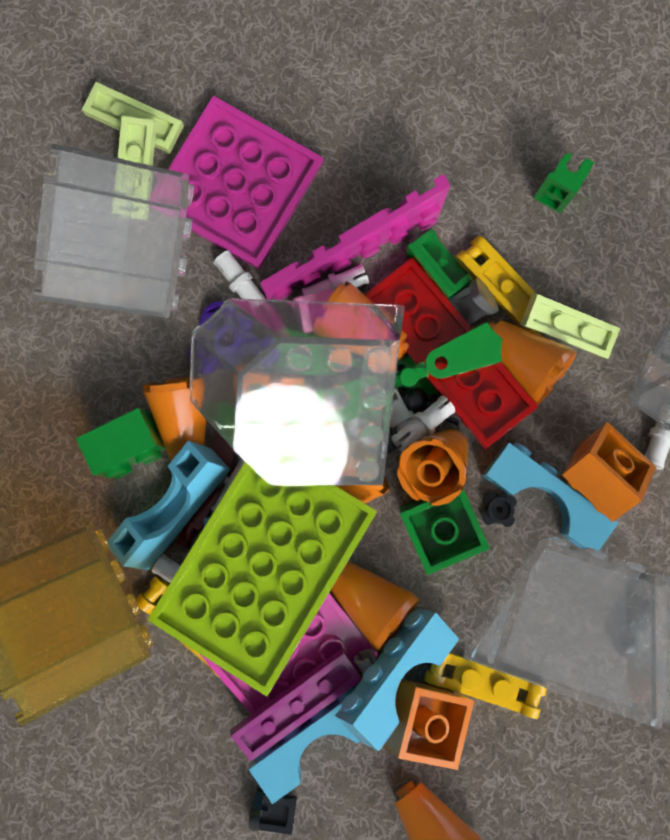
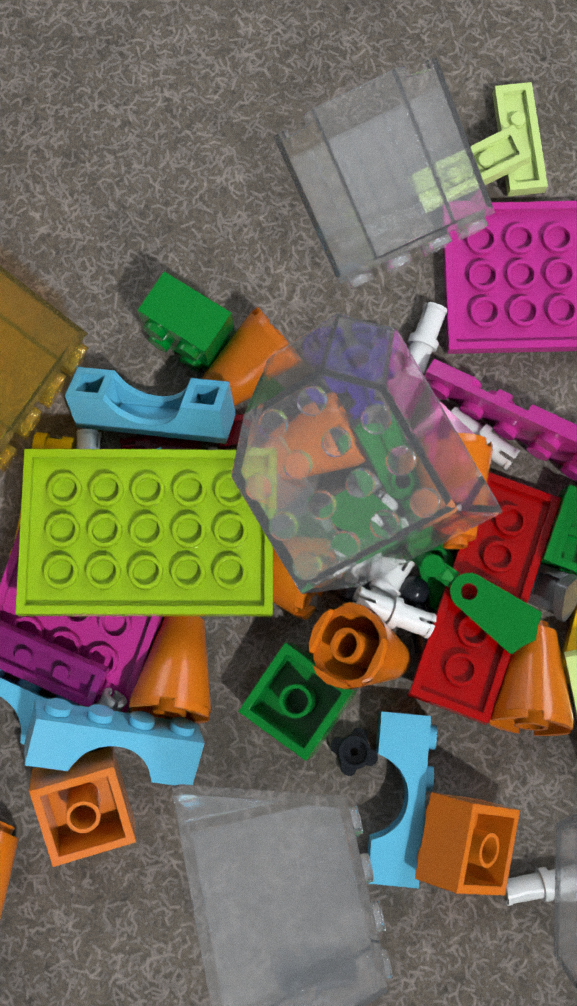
camera: 60 degrees right, 5 degrees down
(486, 685) = (161, 850): yellow plate -> none

